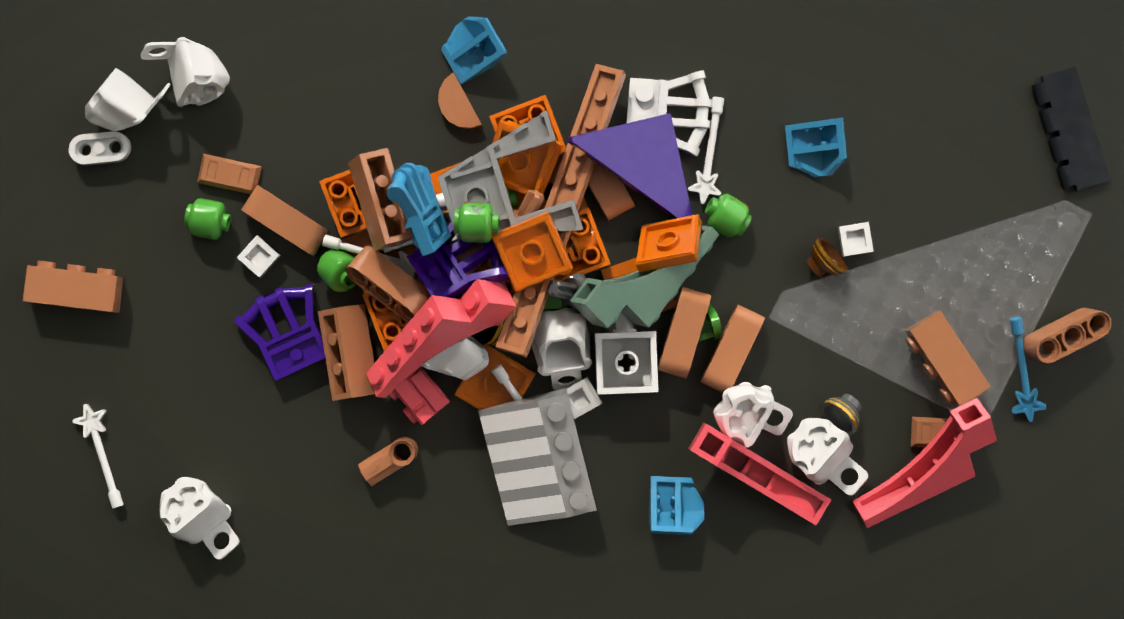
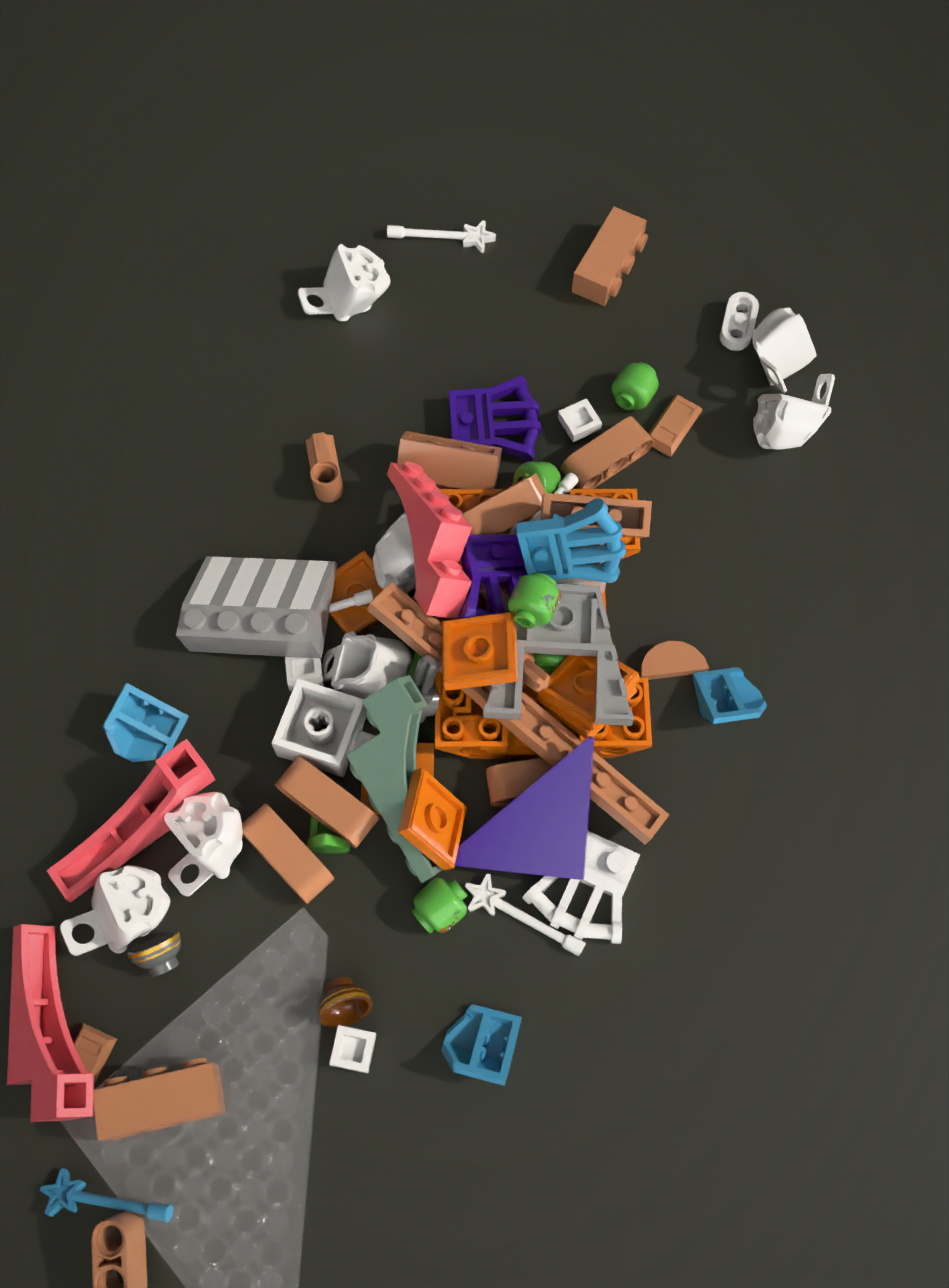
camera: 110 degrees right, 20 degrees down
(420, 396) = (373, 514): coral brick -> none

